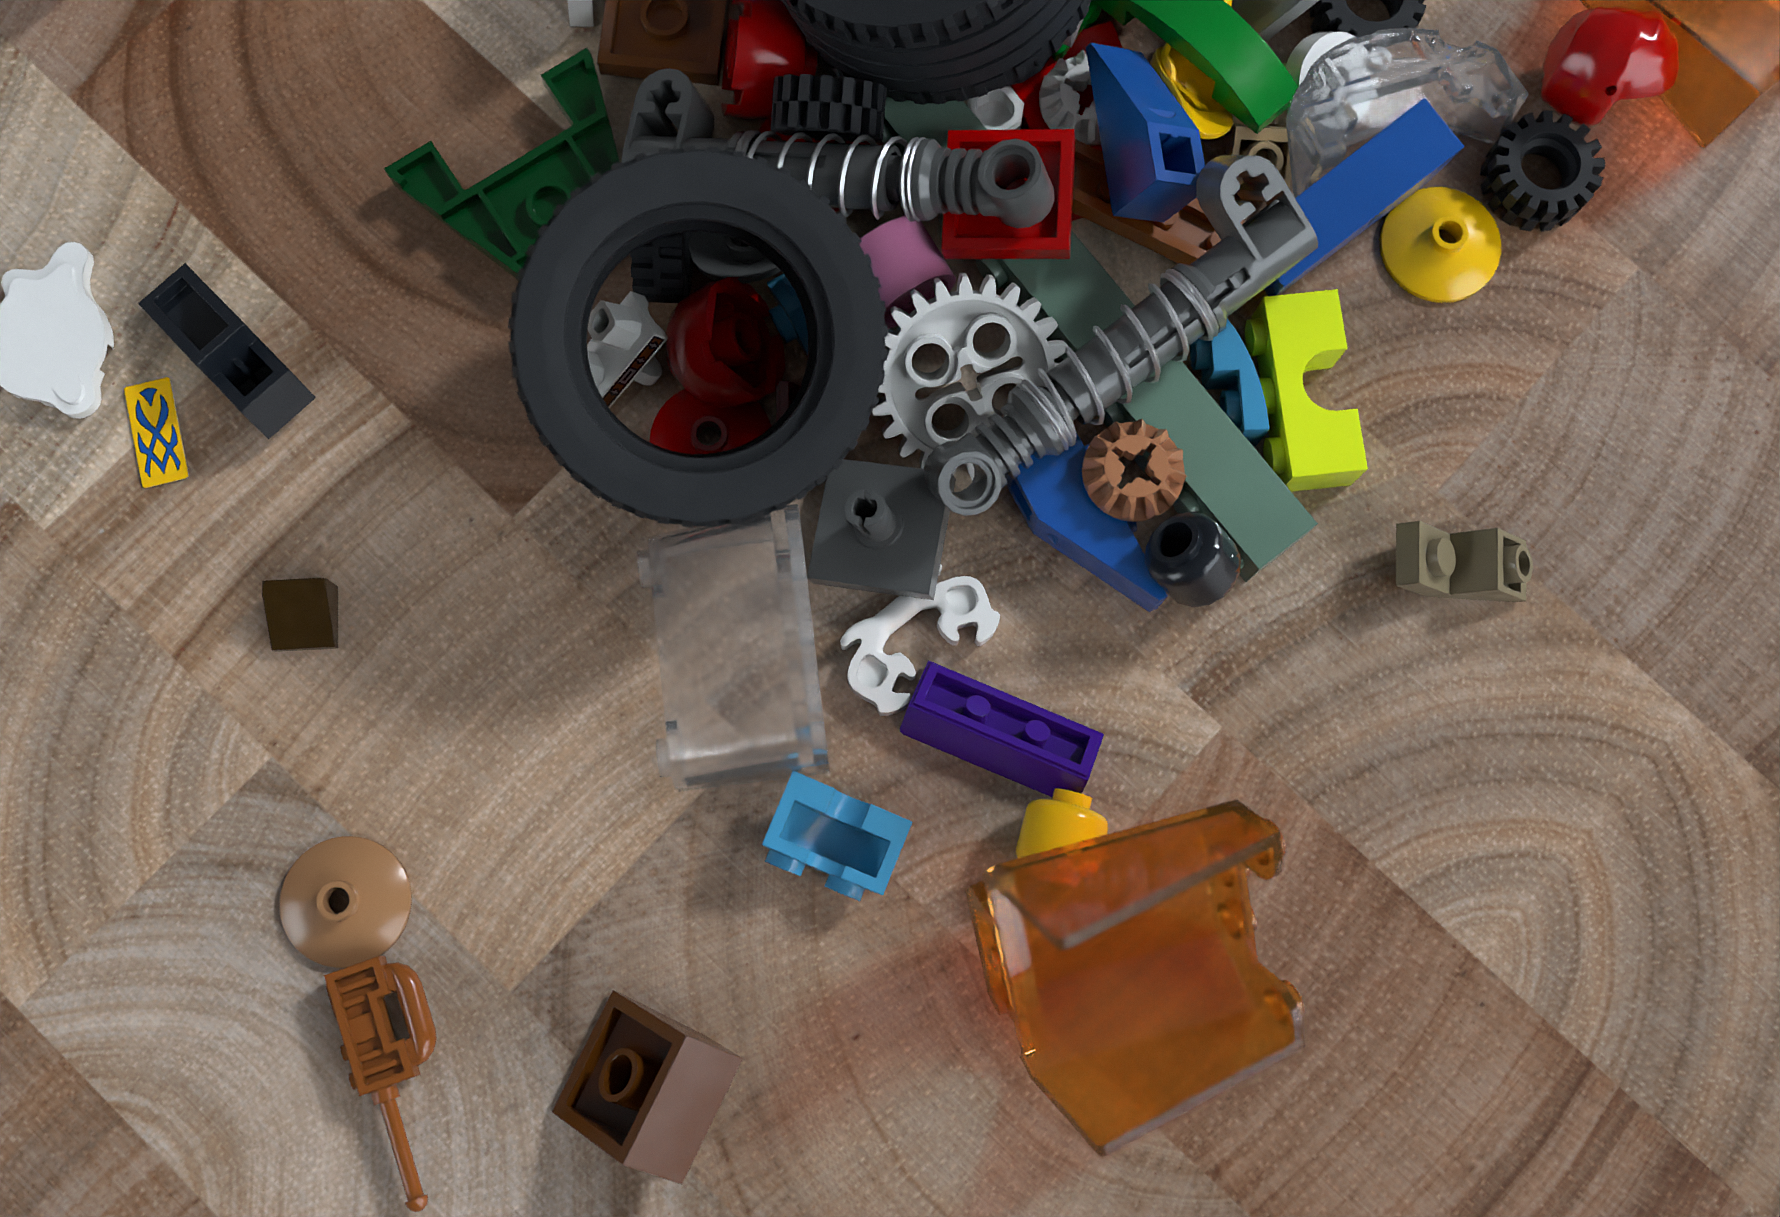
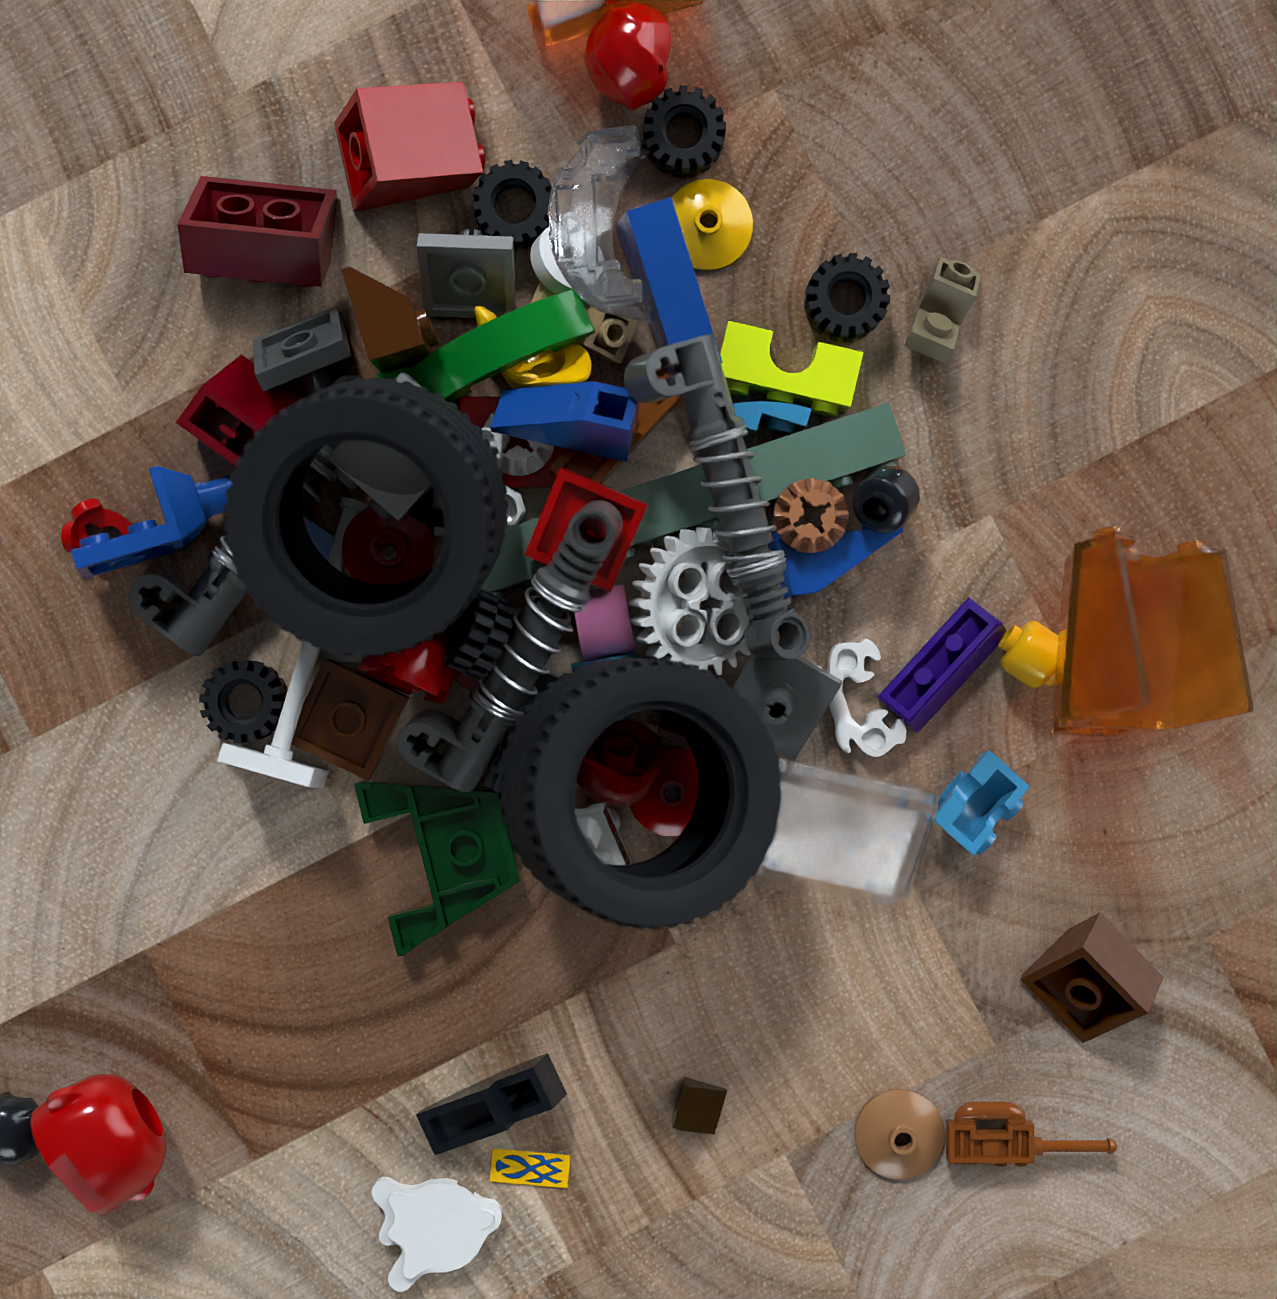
camera: 65 degrees left, 10 degrees up
(1450, 412) = (855, 271): none -> black tyre

